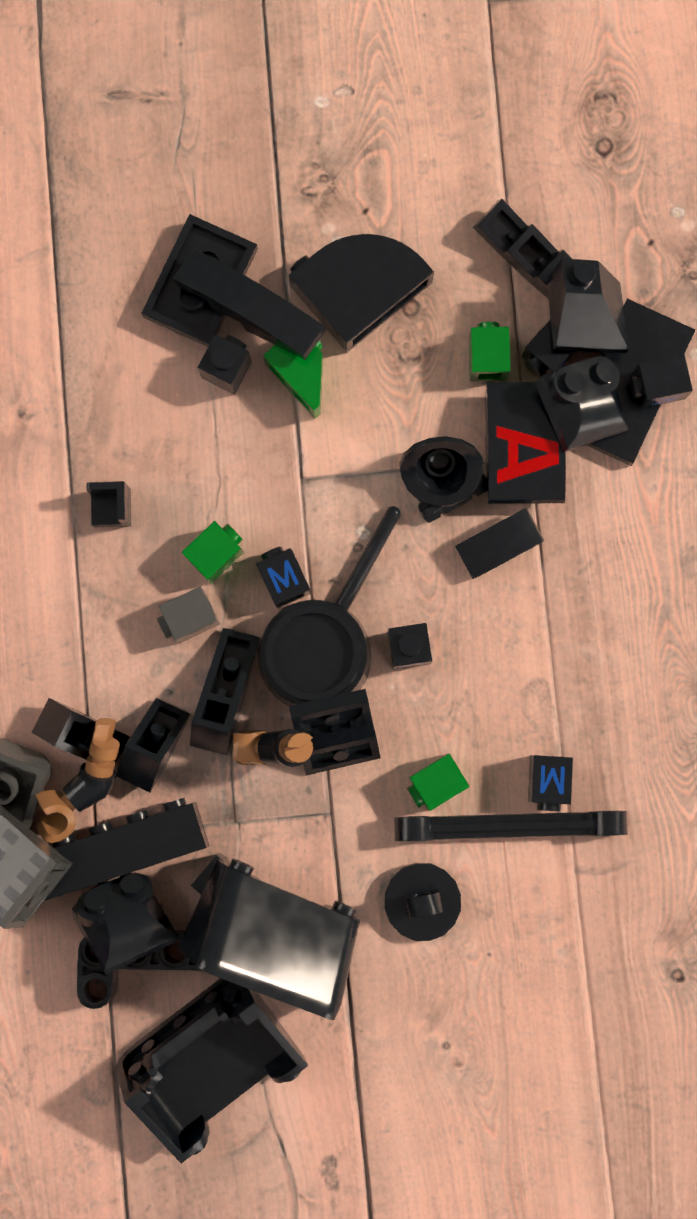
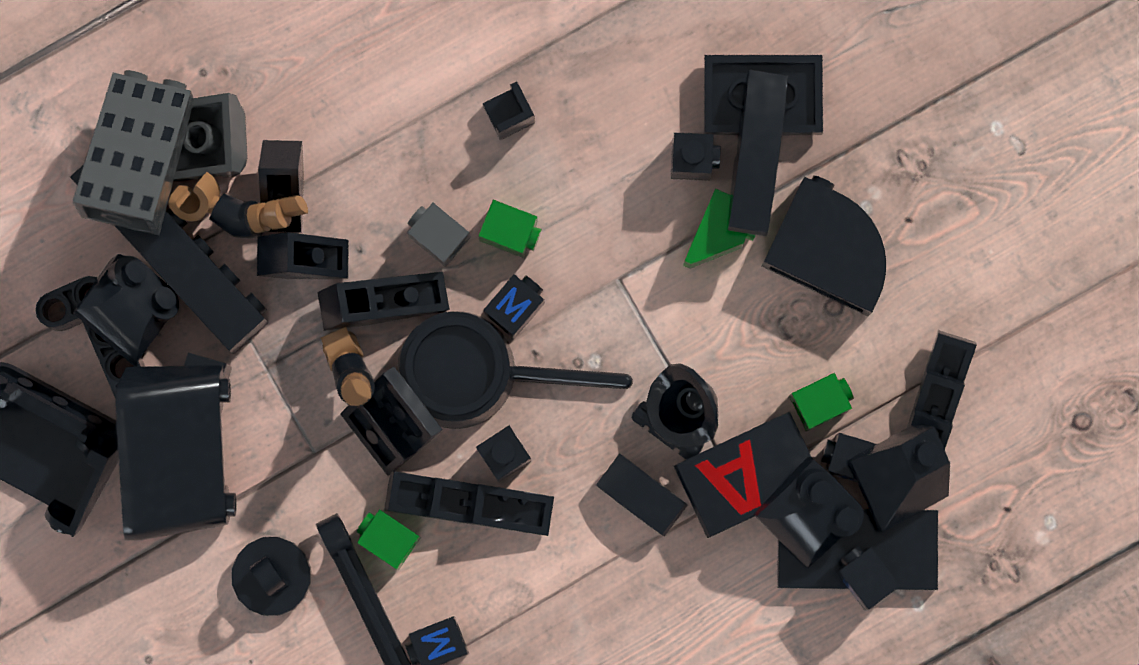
camera: 60 degrees right, 0 degrees up
(438, 697) = (469, 503): none -> black slope

